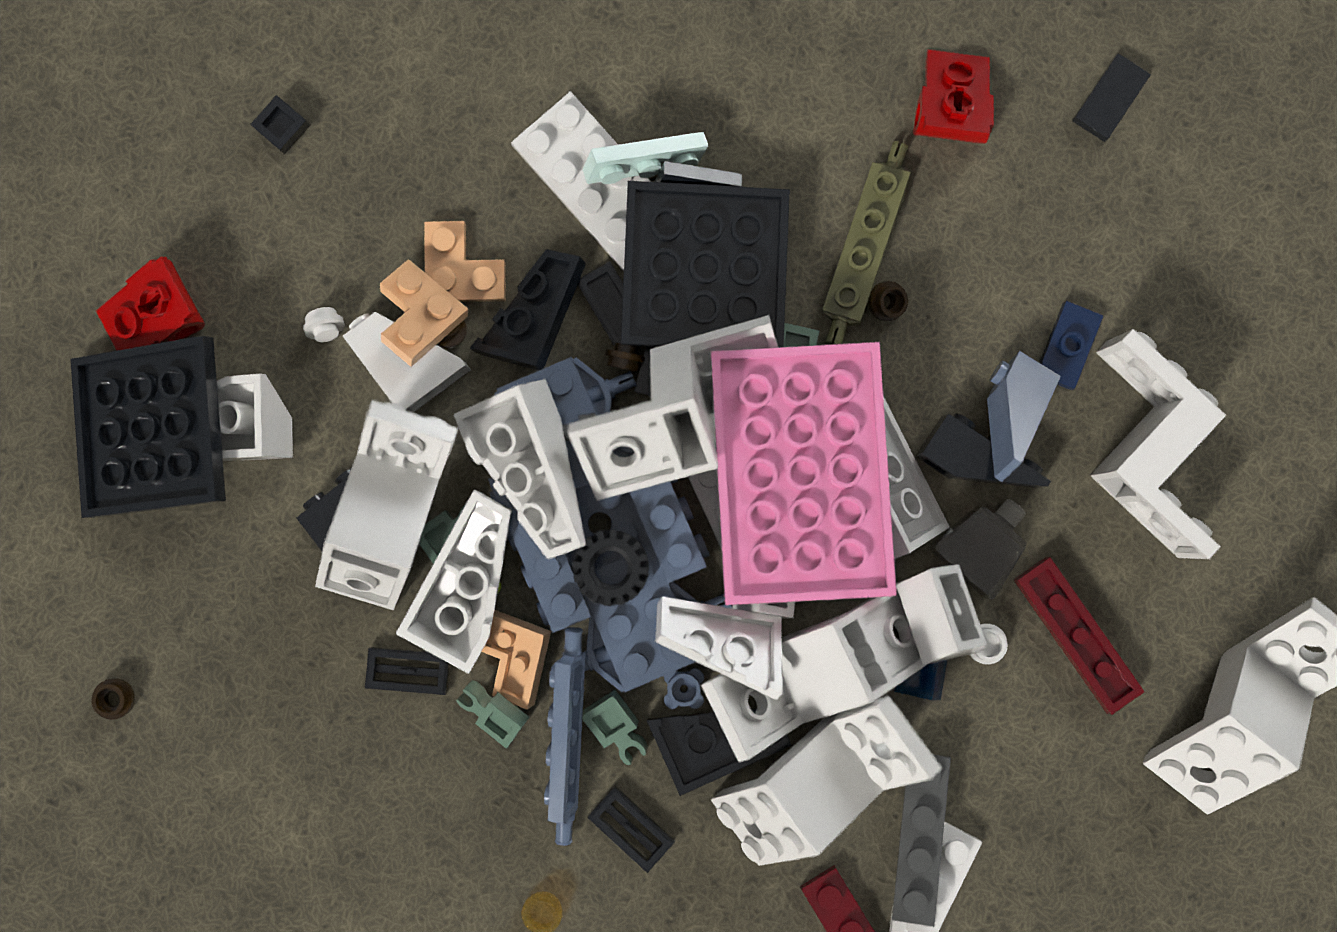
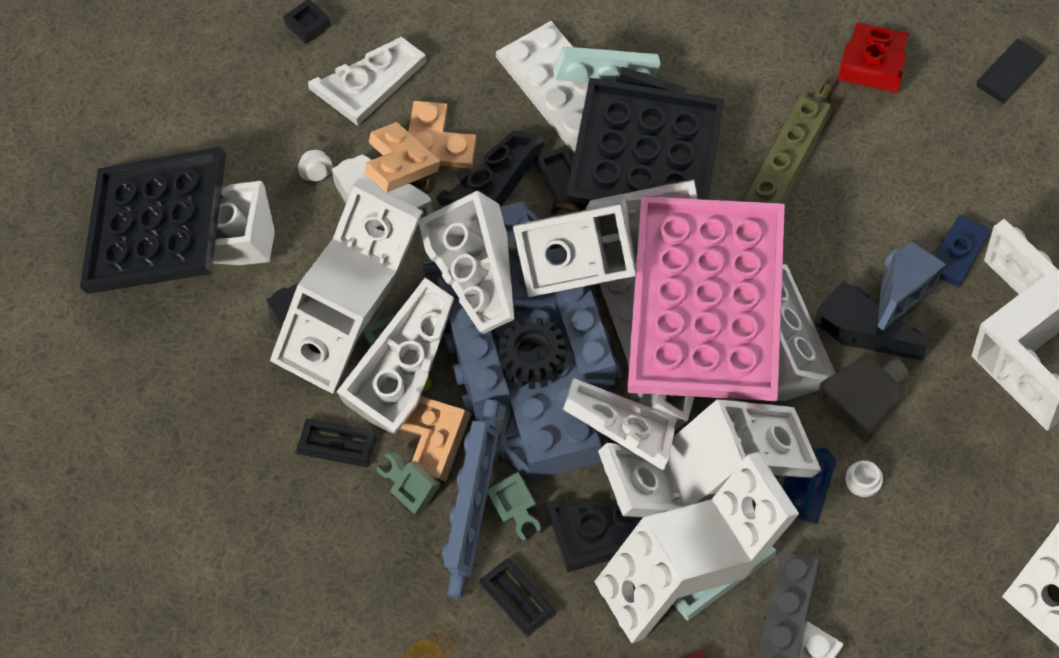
camera: 10 degrees right, 25 degrees down
(100, 699) = (69, 425): dark brown plate -> none
(140, 318) = (164, 134): red piece -> none
(368, 199) = (369, 82): none -> white wing
(689, 698) = (578, 475): sand blue plate -> none
(898, 301) = (808, 193): dark brown plate -> none
(941, 614) = (820, 426): white slope -> none
(1078, 635) = (949, 480): dark red plate -> none

